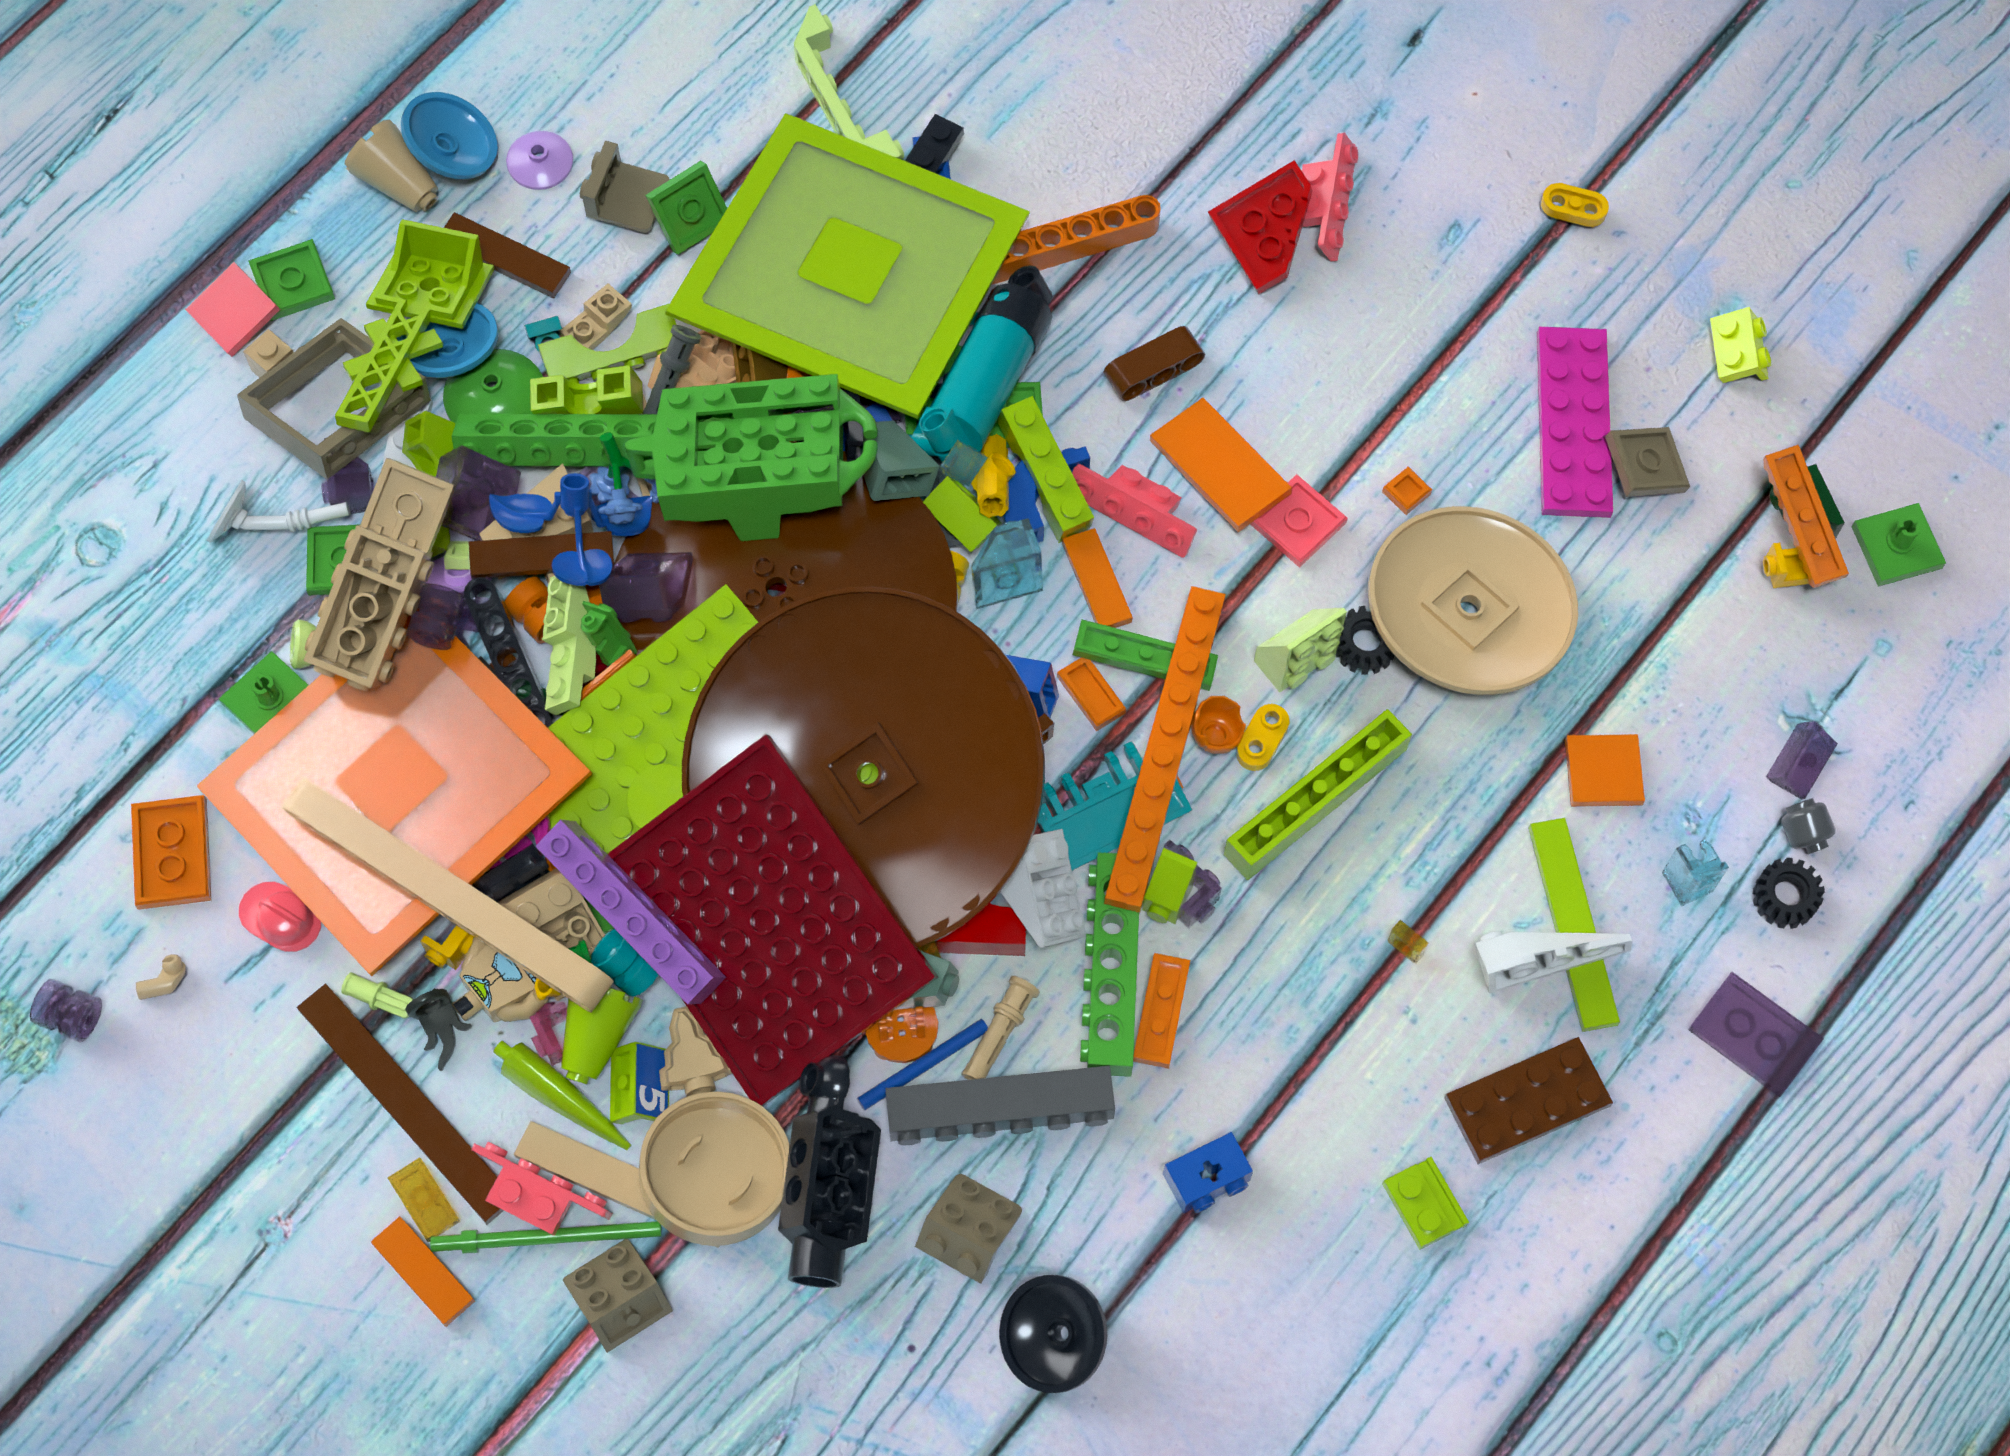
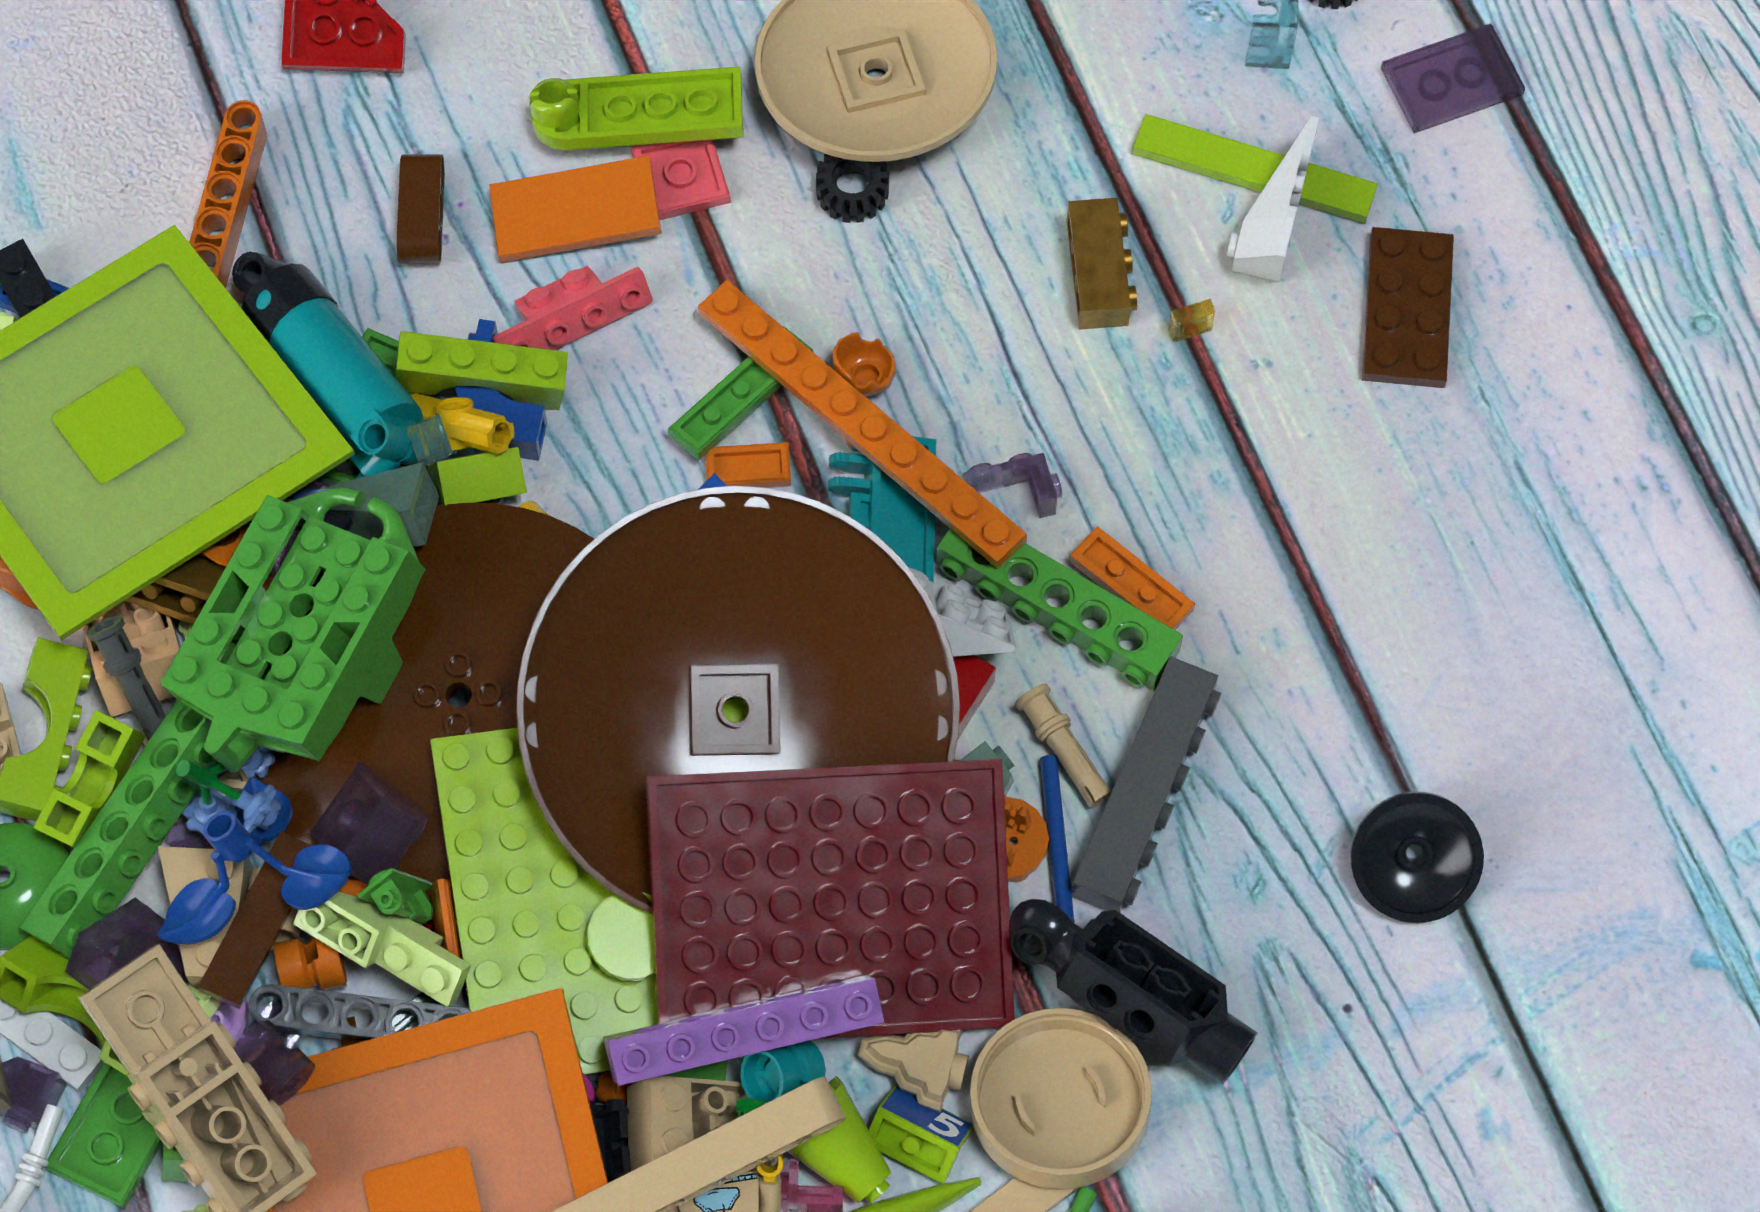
camera: 60 degrees left, 0 degrees up
(968, 1227) = (1258, 883): dark tan bracket -> none
(1007, 565) = (567, 459): clear light blue slope -> none
(1097, 579) = (626, 394): orange tile -> none
(1169, 886) = (1015, 494): lime slope -> none
(1219, 1157) = (1318, 651): blue brick -> none
(1264, 735) = (895, 332): yellow plate -> none
(1301, 647) = (830, 237): yellowish green slope -> none
(1317, 794) = (995, 314): lime brick -> none
(1328, 461) = (638, 109): none -> lime plate
(1407, 490) = (711, 53): orange tile -> none
(1413, 849) = (1100, 263): none -> pearl gold brick
(1425, 1203) = (1459, 453): lime plate -> none
(1604, 770) = (1115, 54): orange tile -> none

